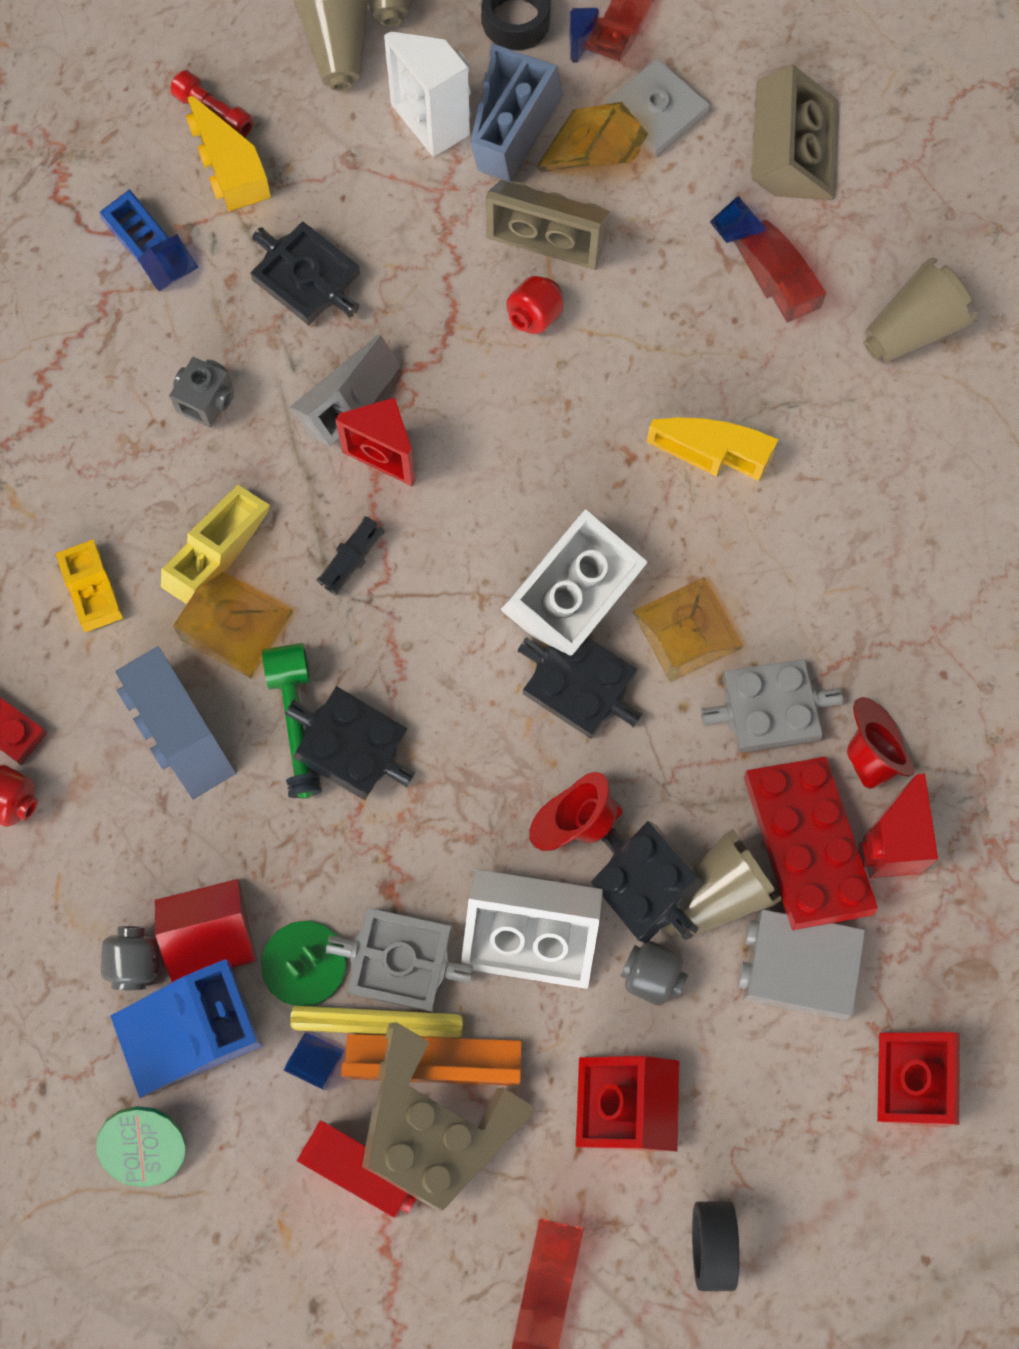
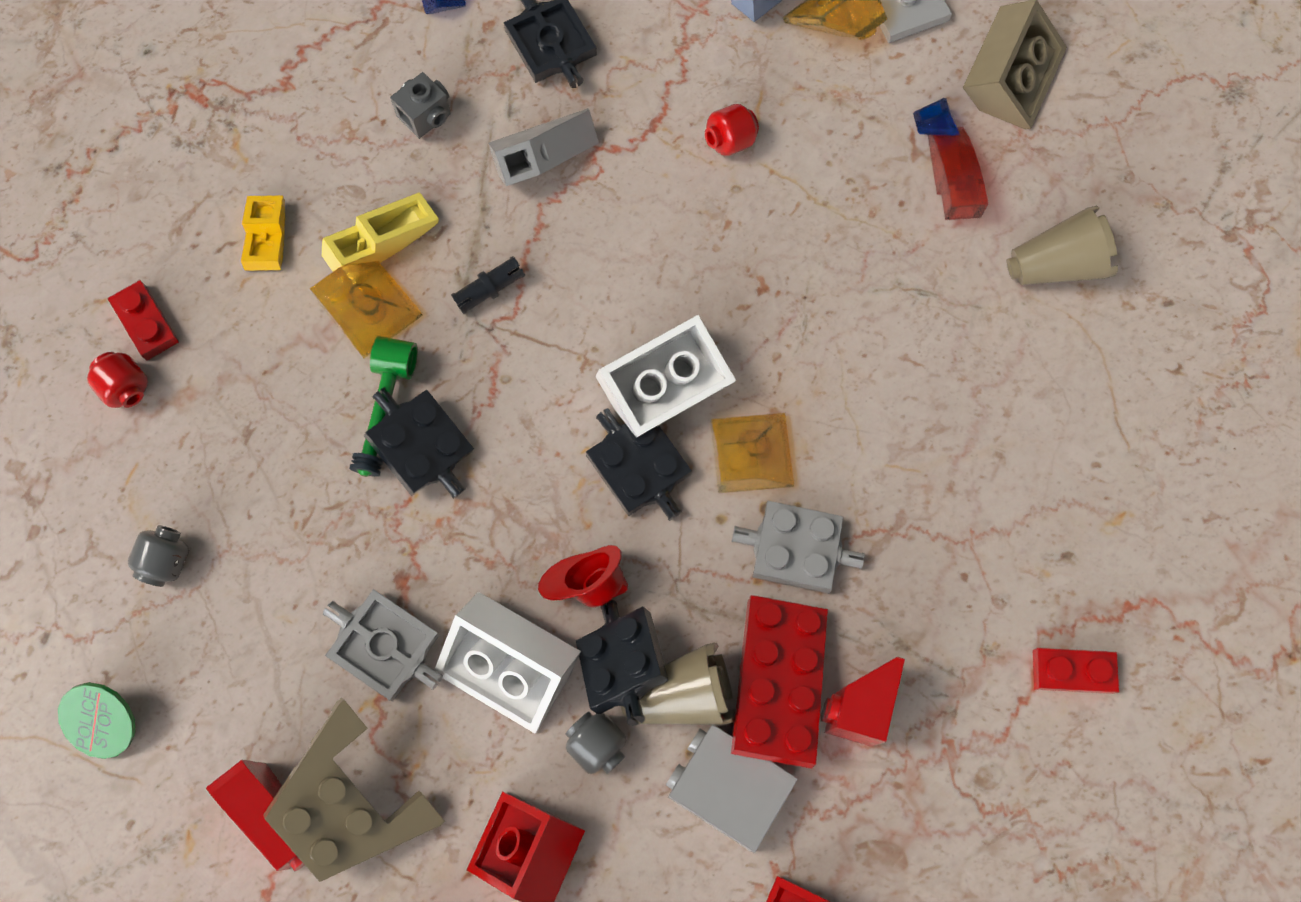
camera: 20 degrees right, 0 degrees up
(173, 722) = (277, 371): sand blue wedge -> none
(186, 1028) = (181, 633): blue slope -> none
(203, 929) = (230, 556): red slope -> none
(298, 965) = (296, 617): green piece -> none
(314, 1061) = (273, 705): clear blue slope -> none
(374, 1021) = (336, 688): light yellow axle -> none
(378, 439) = (549, 193): red slope -> none
(443, 1061) = (383, 748): orange fence -> none
(546, 223) = (769, 64): dark tan slope -> none
(713, 443) = (838, 301): yellow slope -> none
(877, 745) = (877, 617): red piece -> none

